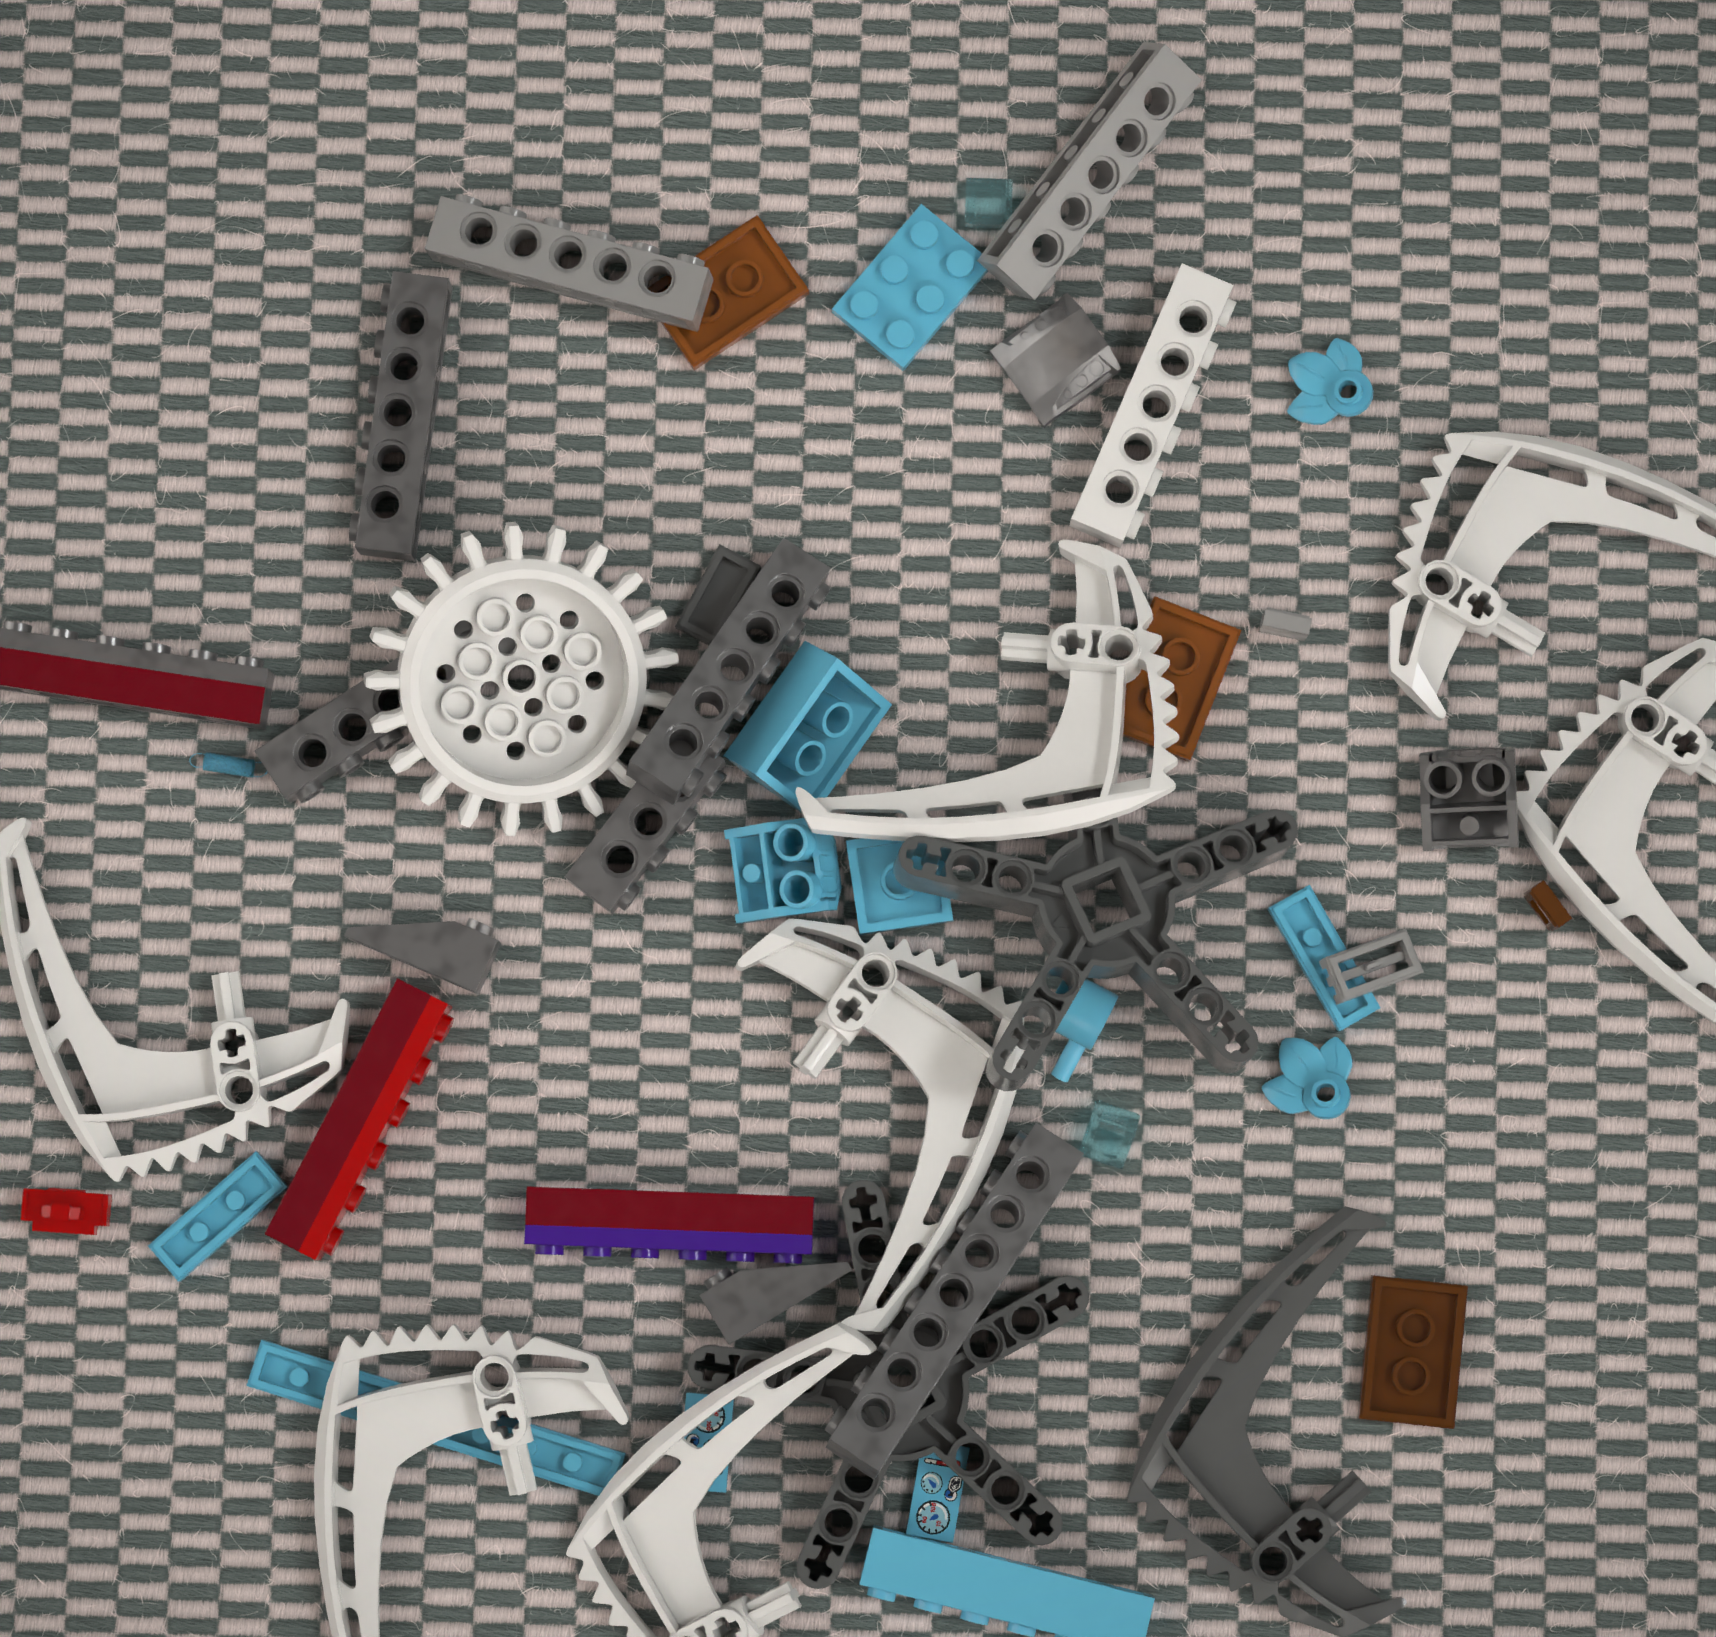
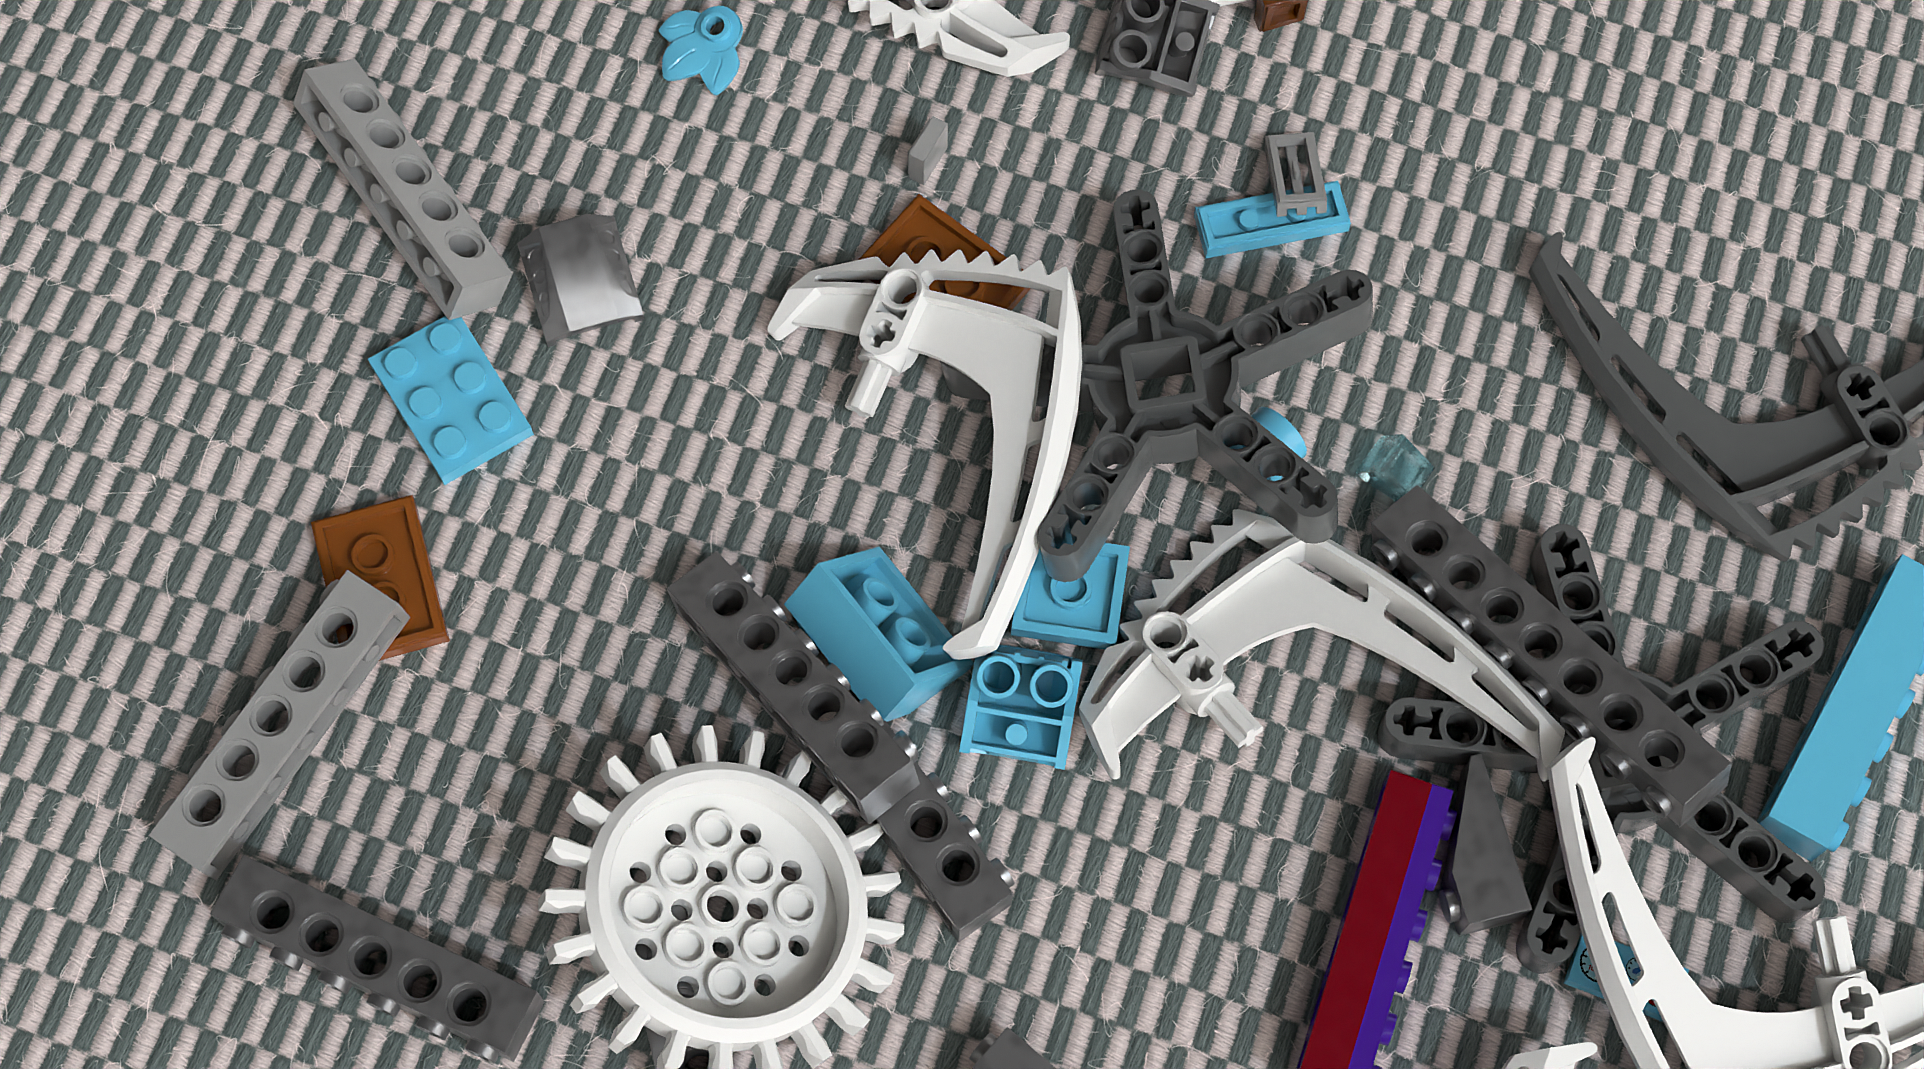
camera: 75 degrees left, 15 degrees down
(717, 594) = (703, 686): dark grey tile -> none
(936, 1498) = (1754, 757): tile -> none
(988, 202) = (393, 298): clear light blue tile -> none
(1190, 294) = (747, 287): white brick -> none
(1306, 1073) = (1386, 265): medium azure plate -> none
(1412, 1352) = (1690, 255): reddish brown tile -> none

